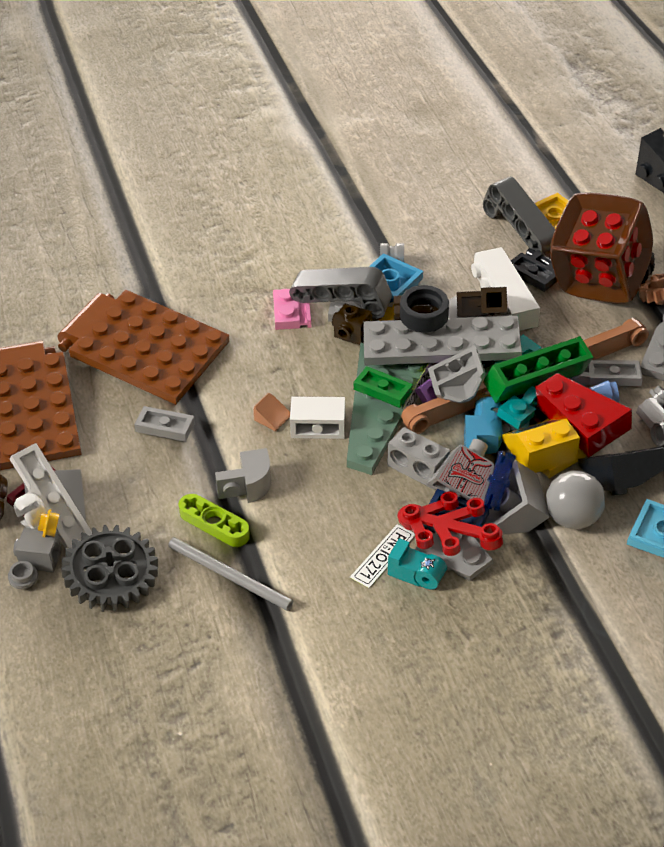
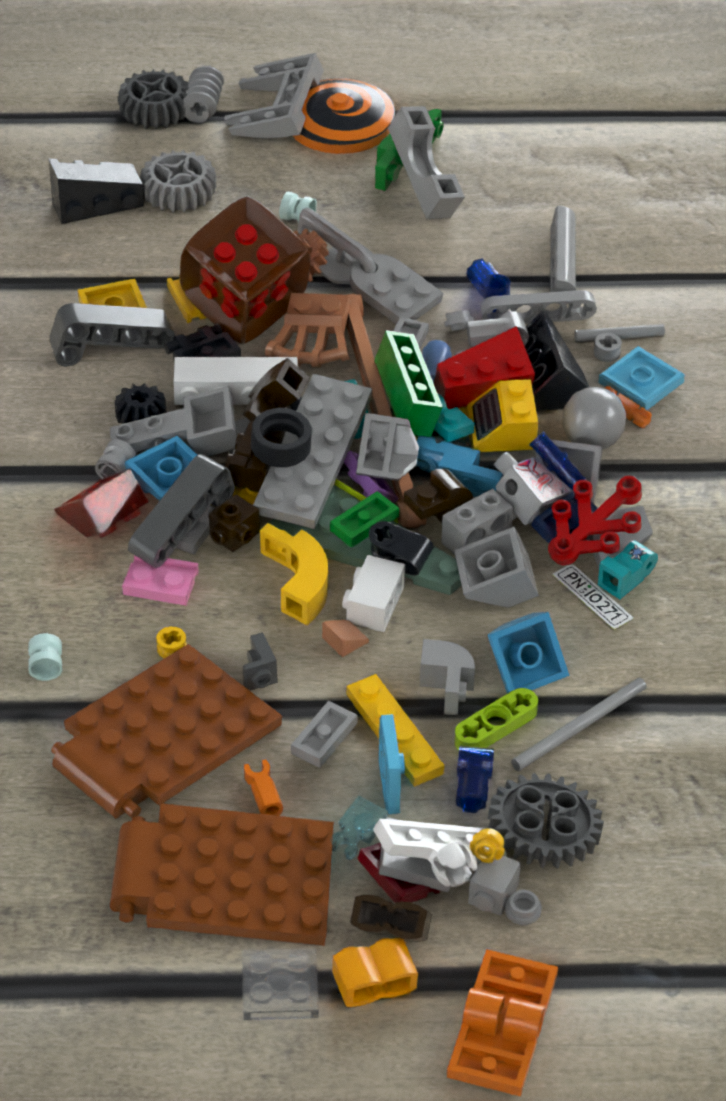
camera: 75 degrees left, 0 degrees up
(86, 460) = (357, 825): none -> clear light blue plate
(104, 406) = (264, 789): none -> orange bar
(130, 457) = (390, 764): none -> medium azure plate
(156, 515) = (474, 773): none -> clear blue piece
(186, 464) = (374, 700): none -> yellow plate
(189, 271) = (45, 657): none -> light aqua wheel
(221, 375) = (262, 664): none -> dark grey bracket
(233, 323) = (165, 638): none -> yellow bush
(286, 517) = (528, 652): none -> dark azure slope
(321, 378) = (308, 589): none -> yellow arch
(335, 254) = (104, 505): none -> clear red slope
(359, 412) = (400, 546): none -> black piece
(369, 481) = (497, 570): none -> light grey slope
(434, 423) = (438, 495): none -> dark brown brick
(440, 273) = (204, 421): none -> light grey plate
(453, 253) = (139, 403): none -> black gear
(588, 315) = (313, 314): none -> nougat plate
(622, 528) = (641, 417): none -> orange axle

